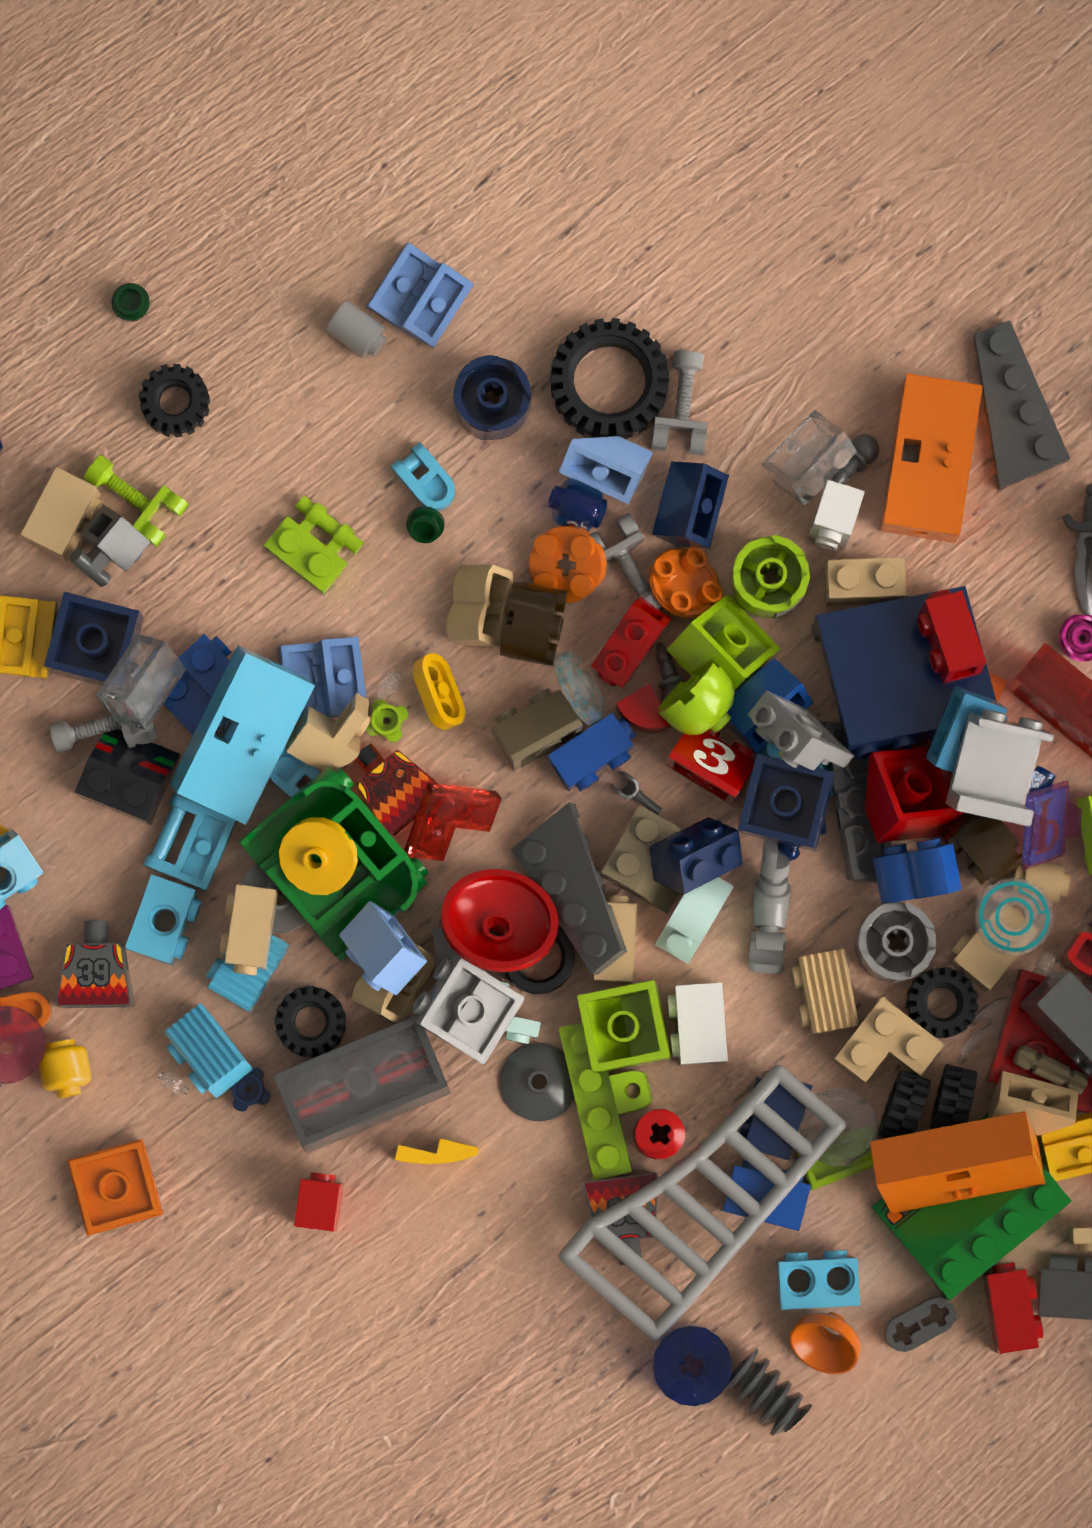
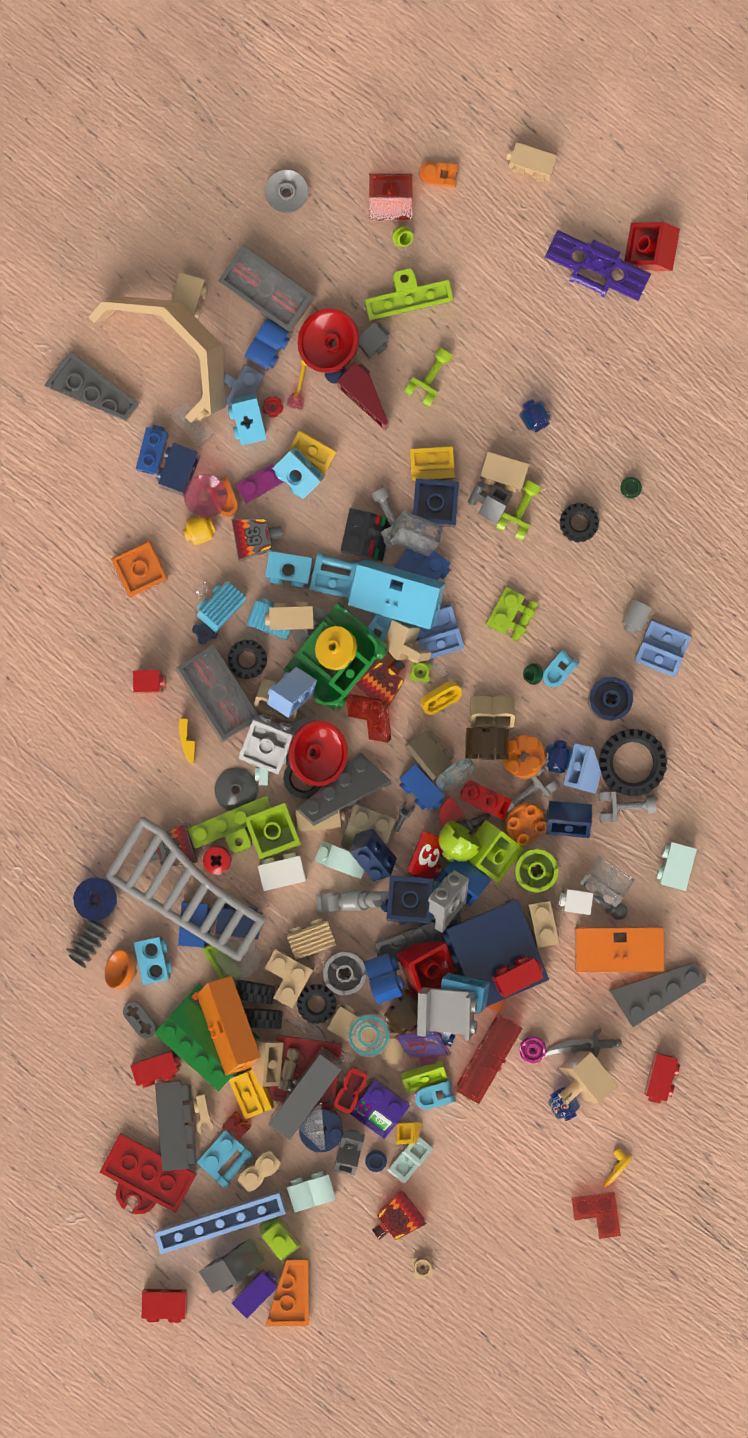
camera: 85 degrees right, 5 degrees up
(802, 334) = (676, 866): none -> light aqua brick

